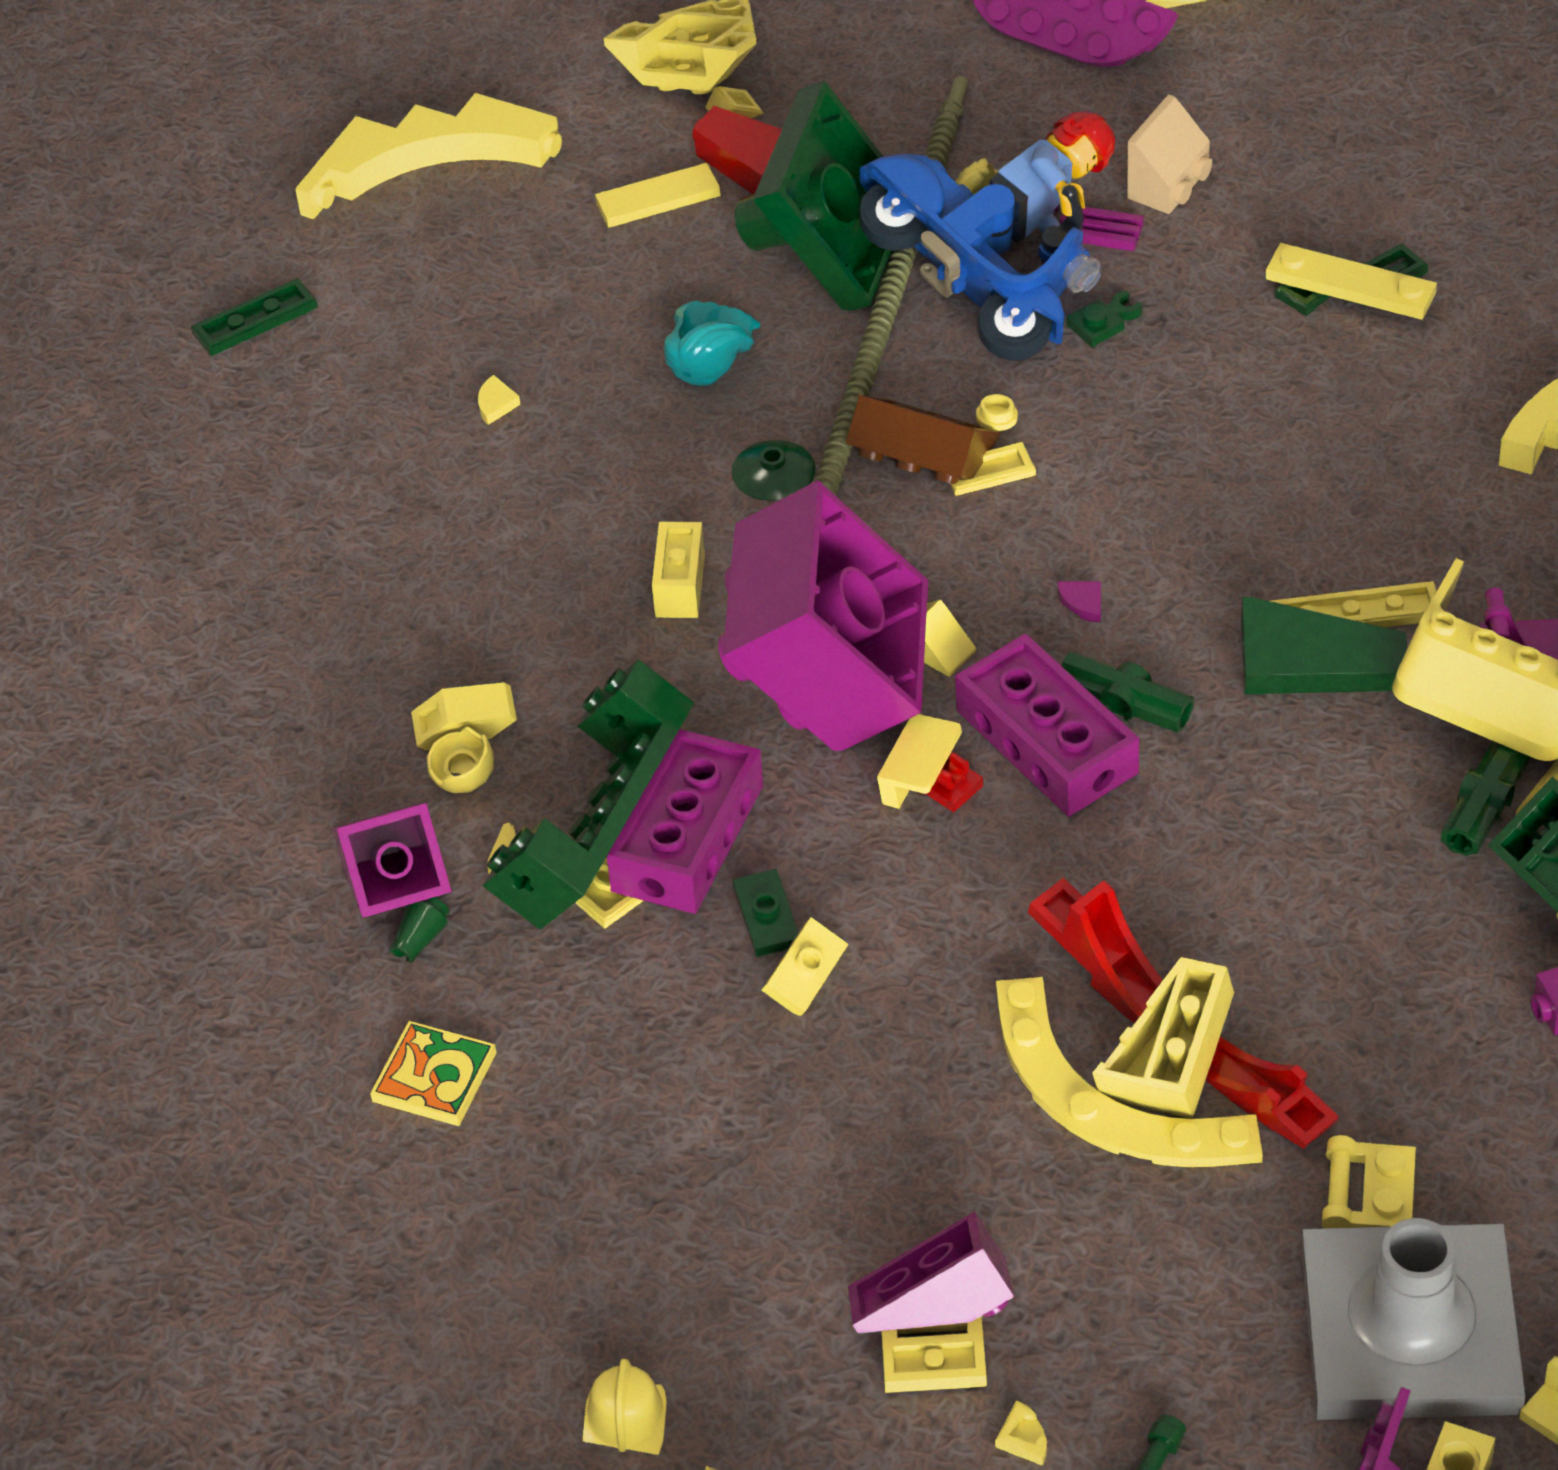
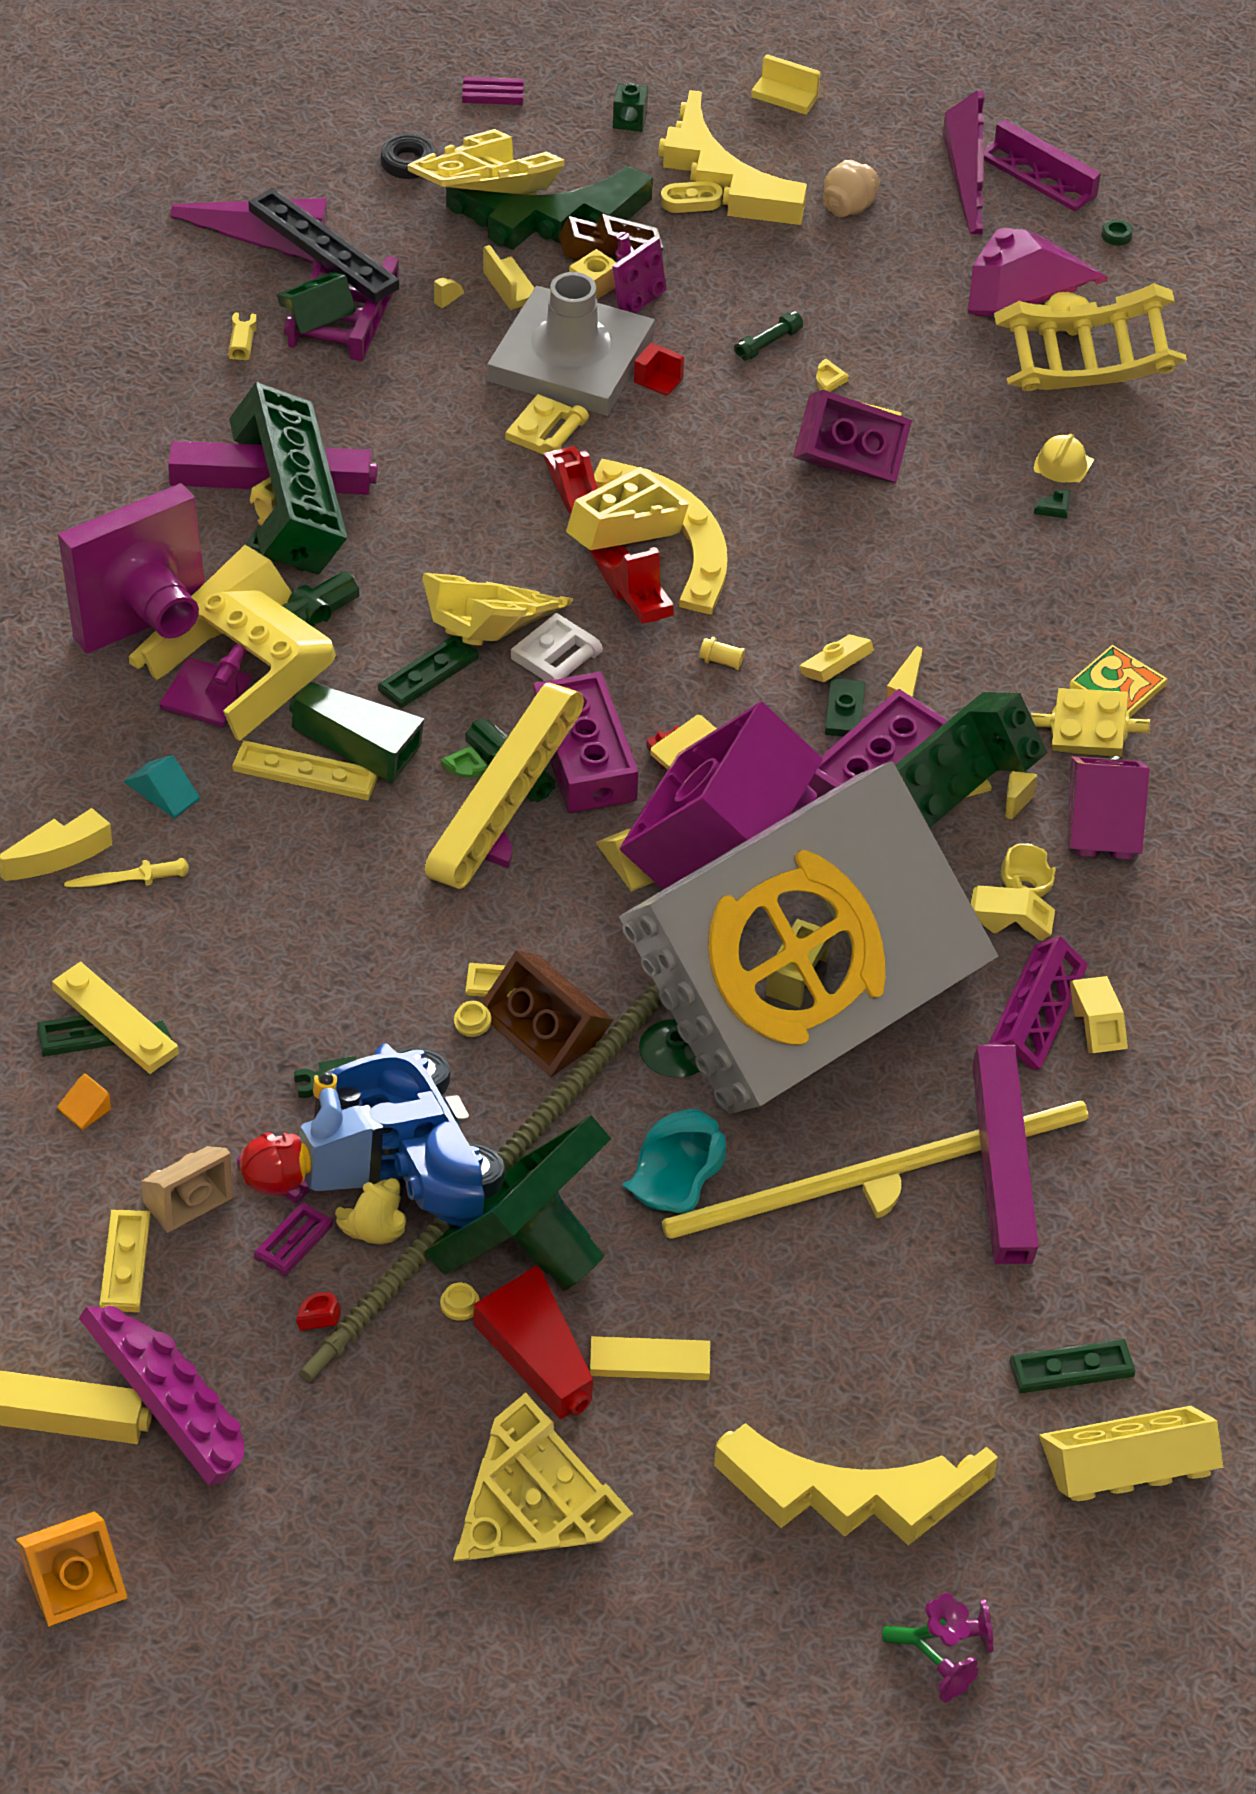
camera: 165 degrees left, 0 degrees up
(177, 257) = (1133, 1452): none -> light yellow slope
(286, 41) = (950, 1623): none -> magenta plant
(330, 637) = (1101, 1012): none -> light yellow slope
(380, 442) = (1004, 1154): none -> magenta brick
(408, 620) = (1034, 993): none -> magenta fence
(450, 991) = (1090, 722): none -> light yellow plate
(498, 425) = (859, 1173): none -> light yellow axle
(611, 1329) = (1054, 505): none -> dark green tile
(654, 494) = (888, 897): none -> light grey panel
(705, 962) = (907, 675): none -> light yellow piece
(951, 924) = (721, 653): none -> light yellow pin
(979, 126) = (318, 1311): none -> red tile
(1098, 617) = (504, 785): none -> light yellow beam
(1169, 856) = (552, 641): none -> white plate
(1178, 85) = (125, 1260): none -> light yellow tile
(1181, 680) = (465, 762): none -> bright green tile
(1255, 851) = (485, 609): none -> light yellow wedge
(1268, 1336) = (659, 369): none -> red panel
(1293, 779) = (427, 671): none -> dark green tile
(1323, 219) = (85, 1102): none -> light orange slope
(1443, 443) = (145, 872): none -> light yellow sword
(1494, 529) = (164, 785): none -> teal slope

